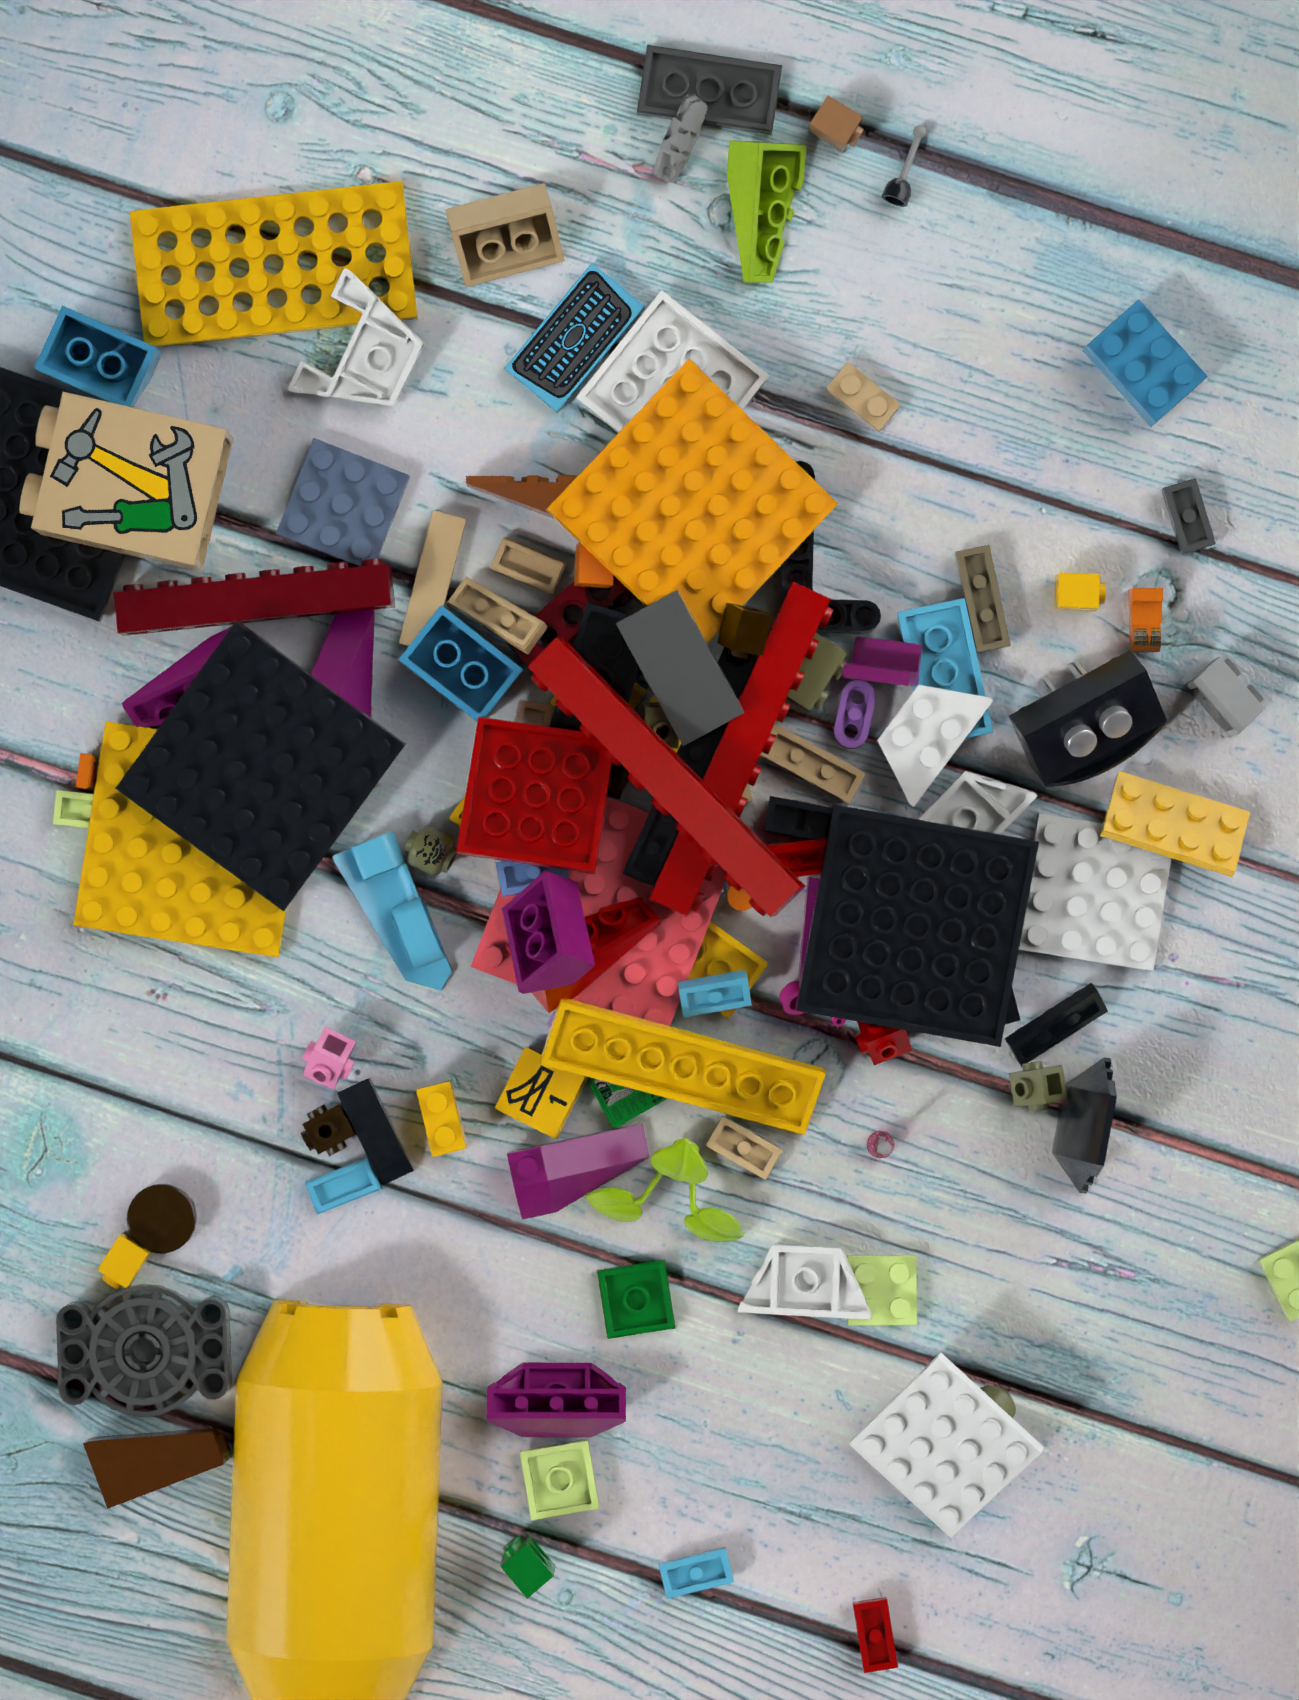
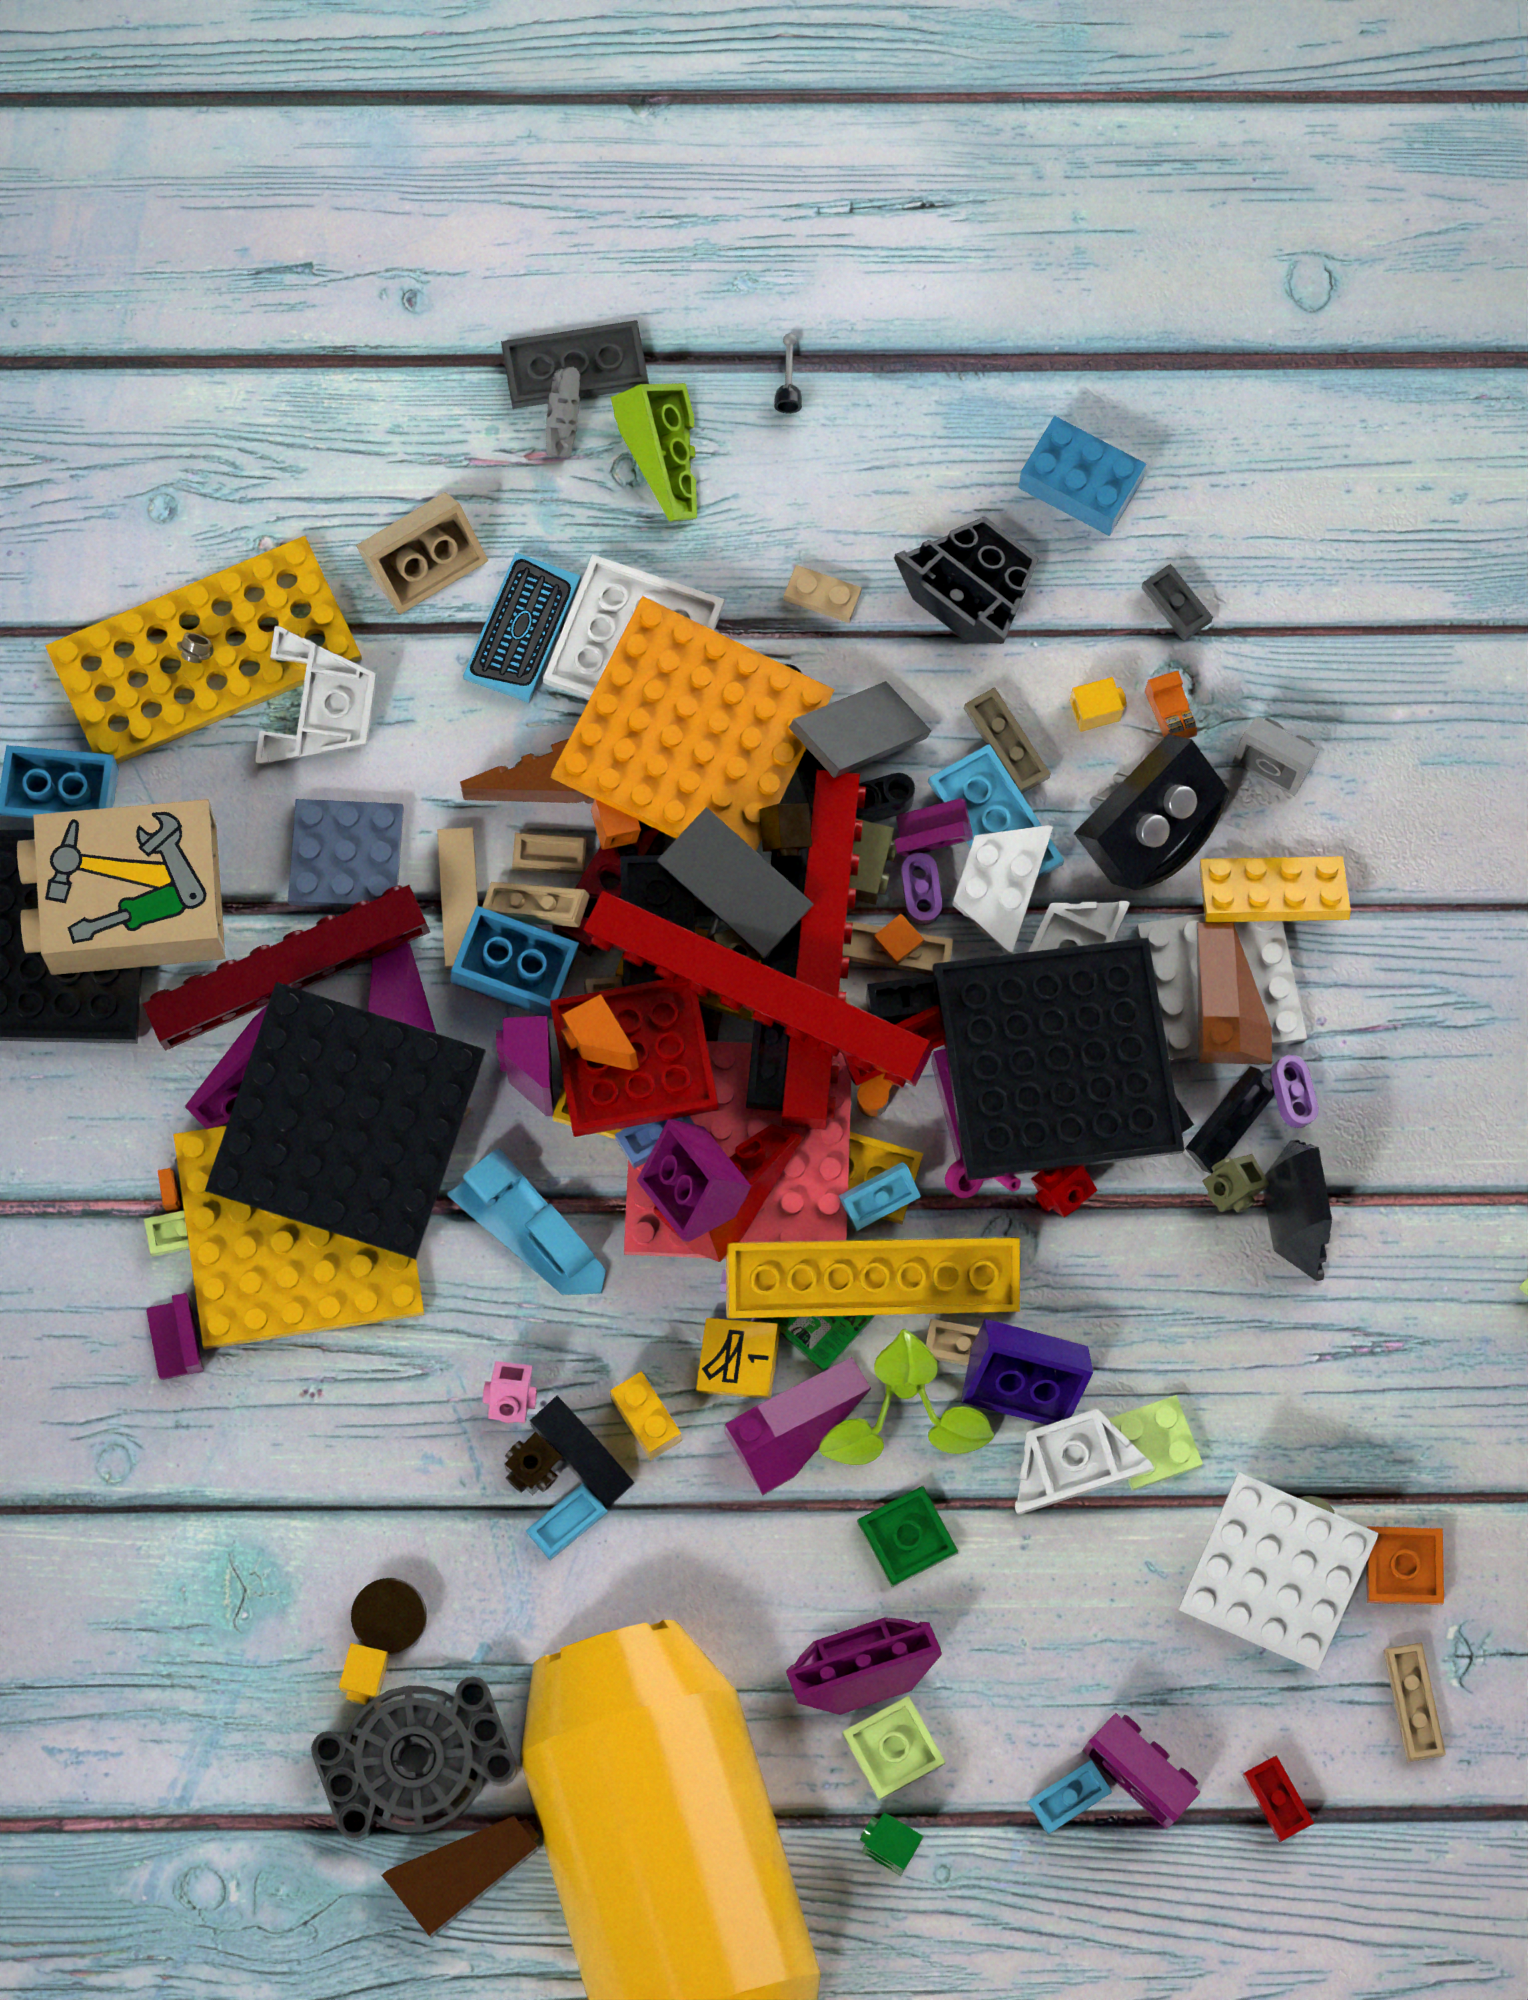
camera: 20 degrees left, 15 degrees down
(52, 906) = (174, 1338): none -> magenta panel
(264, 264) = (194, 647): none -> dark tan plate
(431, 850) = (545, 1153): olive head -> none
(442, 766) = (527, 1058): none -> magenta slope
(507, 770) = (598, 1035): none -> orange slope
(767, 1573) = (1142, 1769): none -> magenta slope
(789, 1195) = (1026, 1373): none -> dark purple slope
(815, 758) = (898, 939): none -> orange tile
(836, 124) = (708, 355): medium nougat brick -> none
(847, 550) = (859, 729): none -> dark grey tile
(883, 1146) = (1100, 1293): clear pink hinge -> none
(1005, 432) = (970, 579): none -> black wedge
(1024, 1591) = (1414, 1702): none -> tan tile
(1061, 1474) = (1406, 1566): none -> orange plate
(1093, 921) = (1230, 1009): none -> dark orange wedge
(1124, 1017) = (1296, 1092): none -> medium lavender plate

